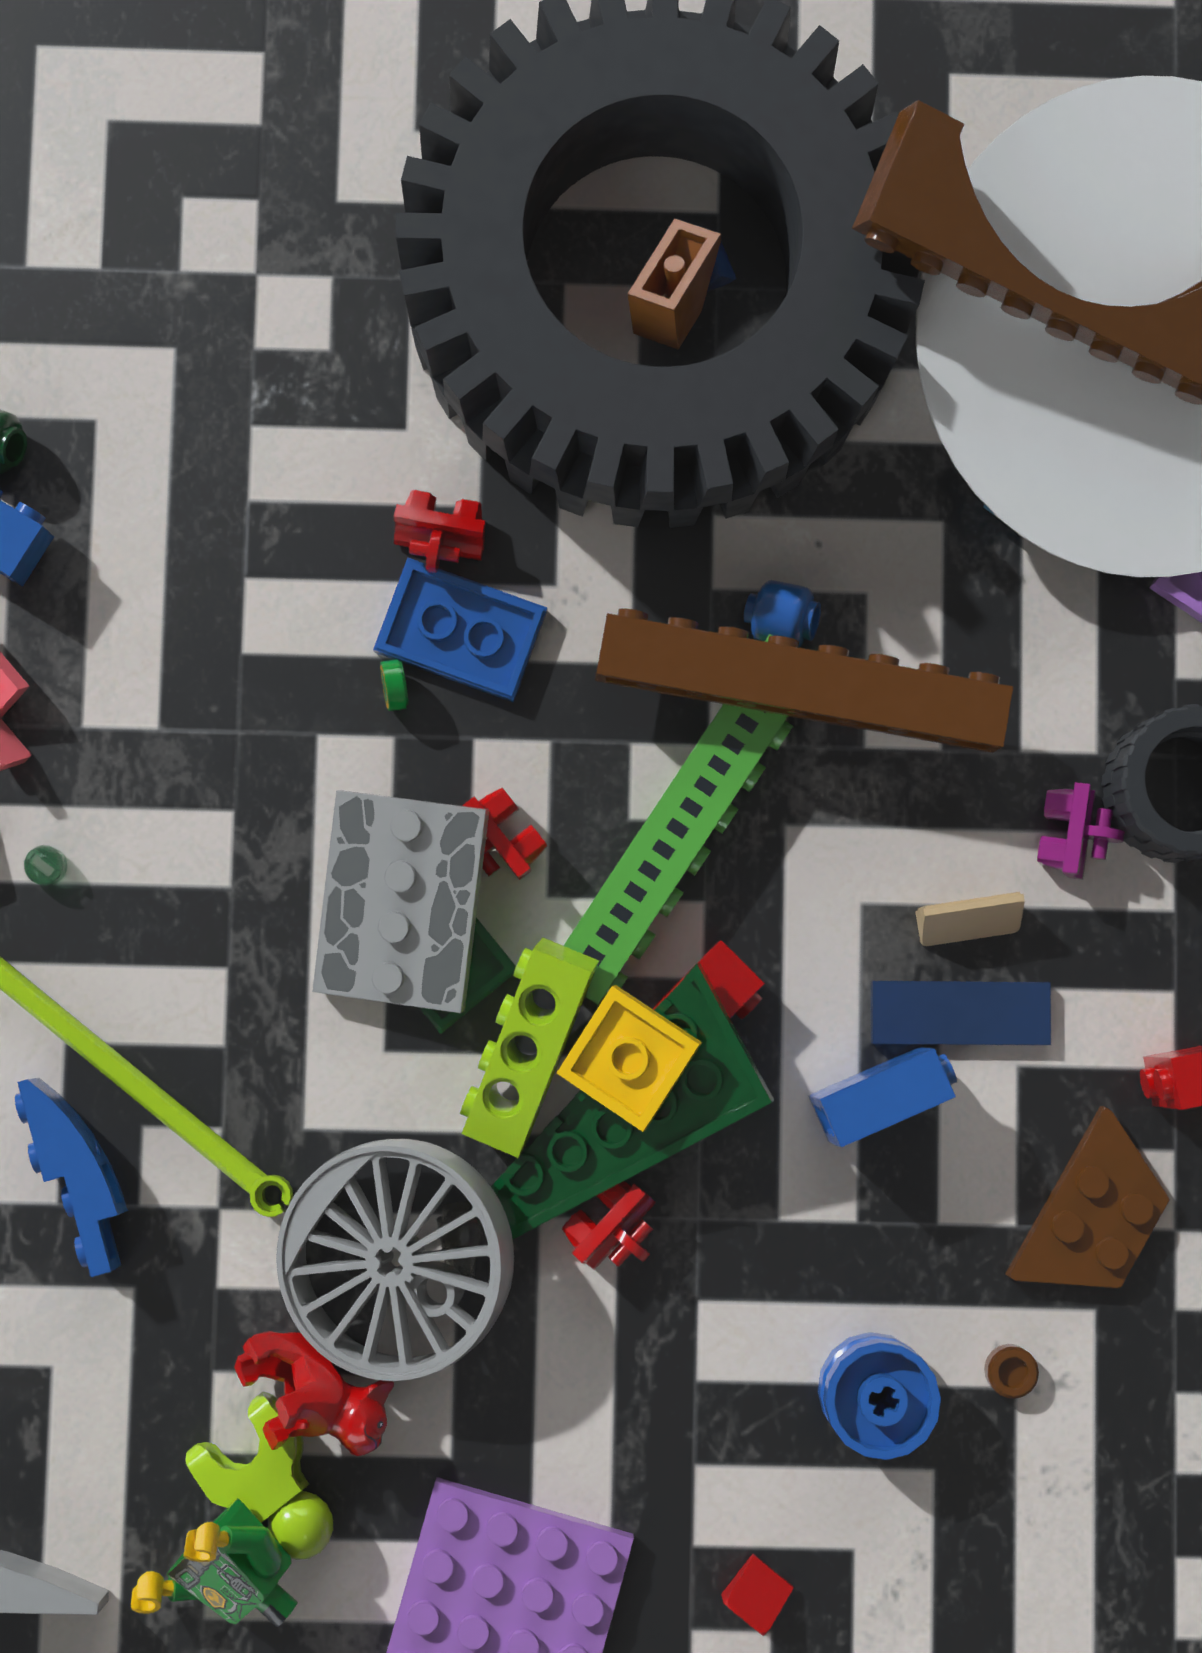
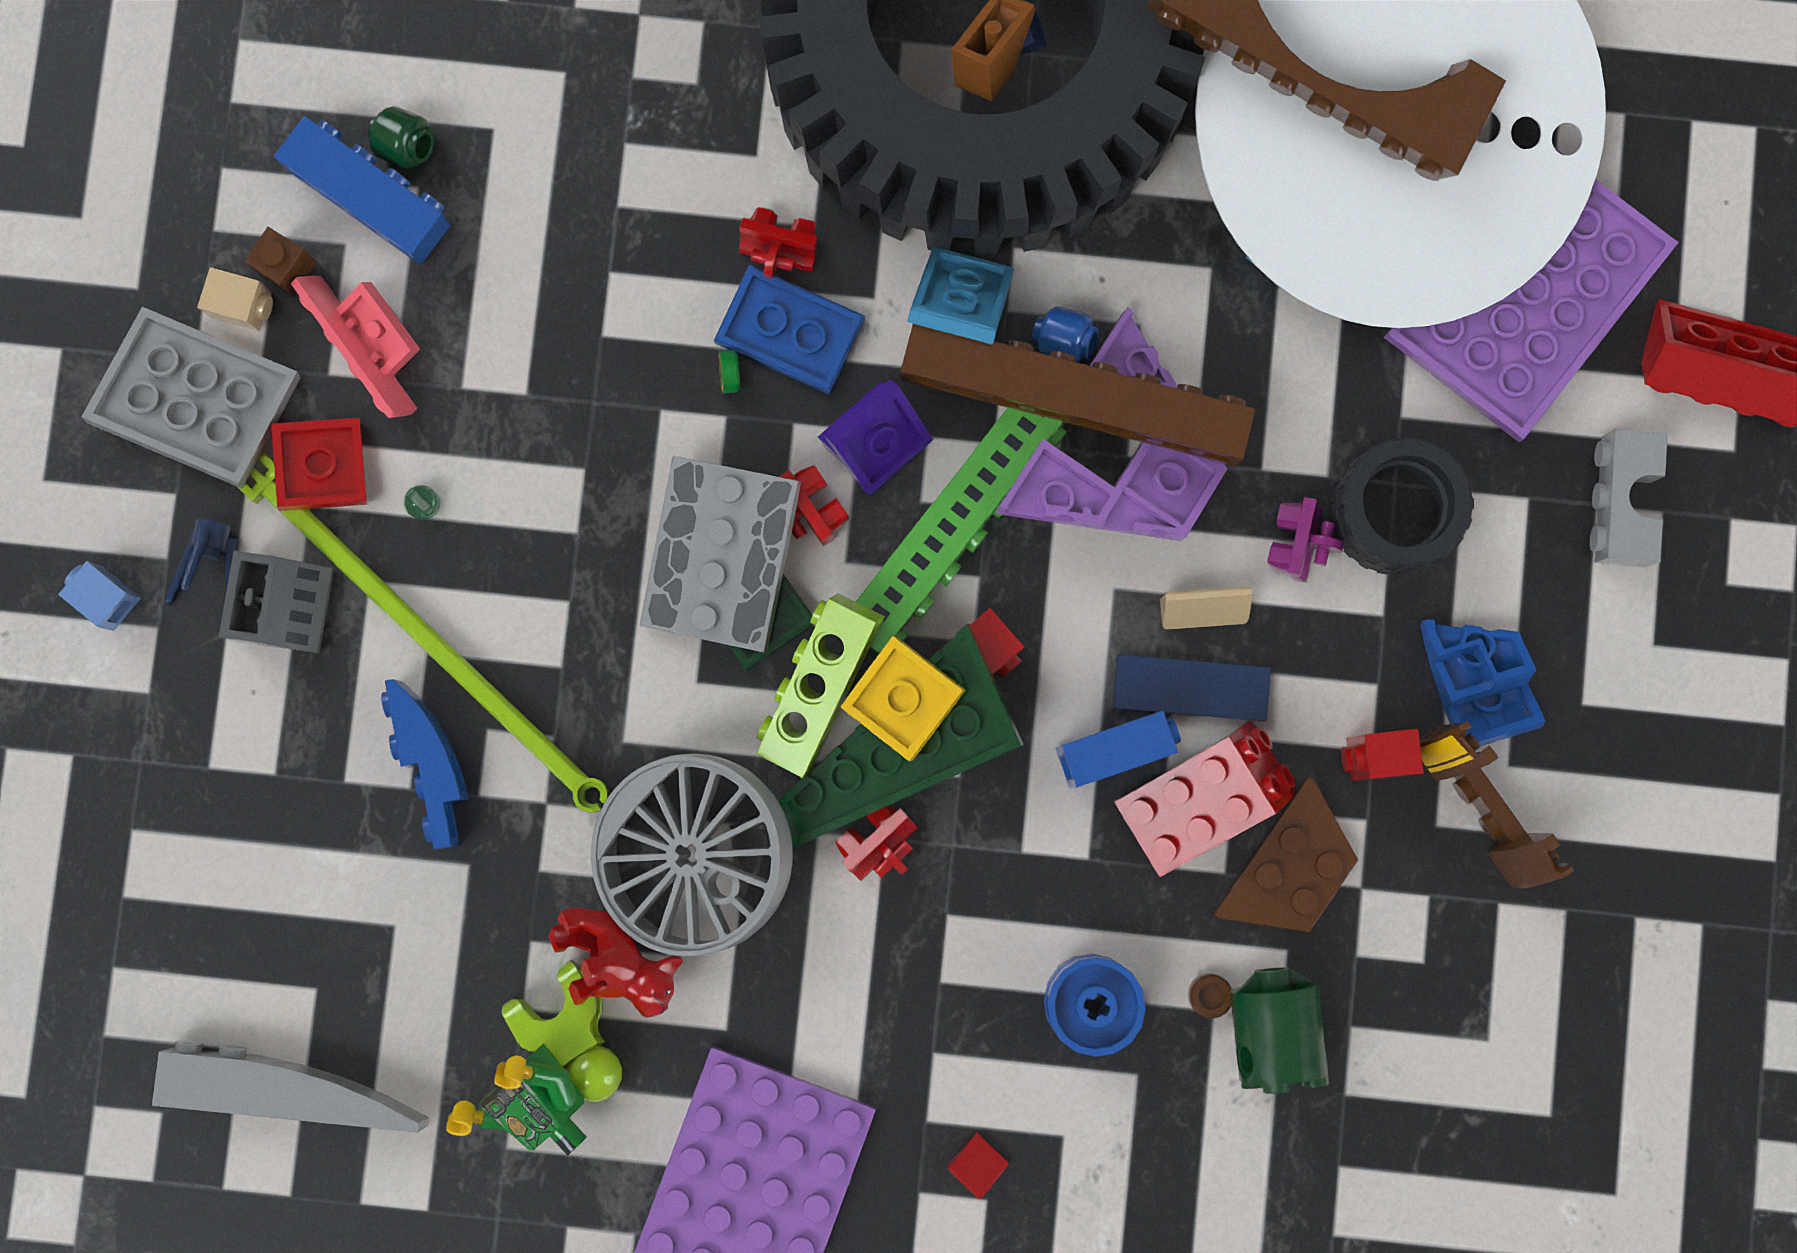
camera: 15 degrees right, 0 degrees up
(572, 747) = (877, 436): none -> dark purple bracket
(659, 577) = (961, 295): none -> dark azure tile
(904, 786) = (1155, 494): none -> medium lavender wing
(992, 1143) = (1208, 798): none -> bracket
(1096, 1411) = (1279, 1031): none -> dark green cylinder

